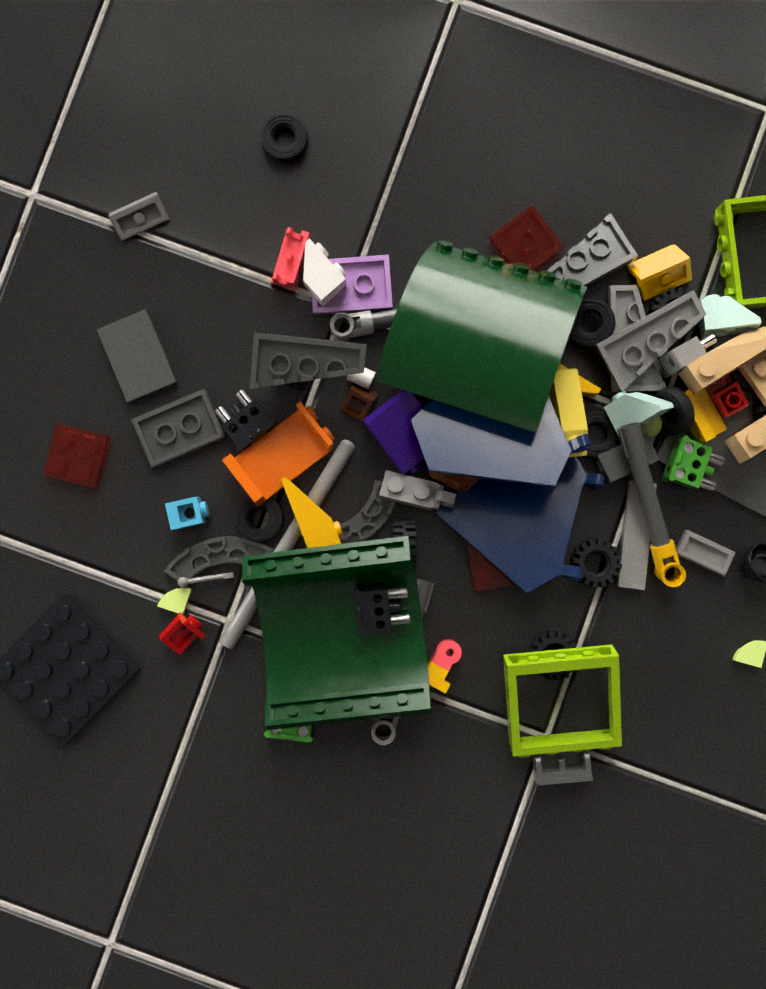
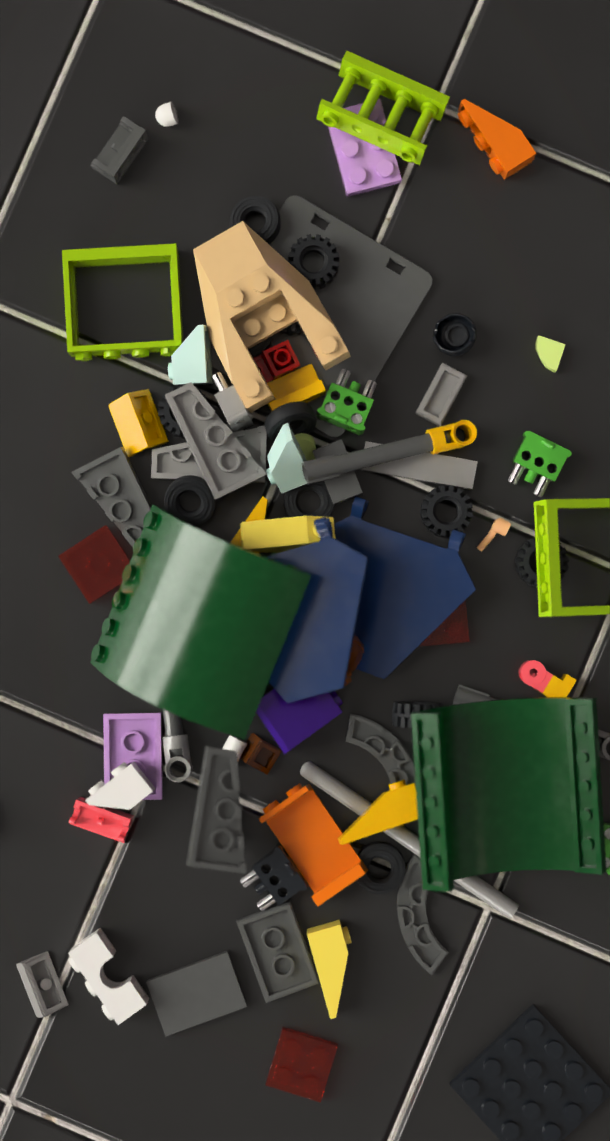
camera: 90 degrees left, 0 degrees up
(128, 283) = (119, 998): none -> white arch
(176, 600) = (463, 962): yellowish green tile -> none
(177, 475) = (330, 956): none -> light yellow slope
(177, 513) = (376, 955): medium azure brick -> none
(181, 632) = (498, 958): red bracket -> none
(183, 581) = (444, 954): light grey hinge -> none
(367, 608) = (487, 750): black piece -> none
(415, 491) = (361, 700): light grey hinge -> none
(584, 614) = (499, 526): none -> light nougat hand
(660, 651) = (548, 453): none -> bright green piece

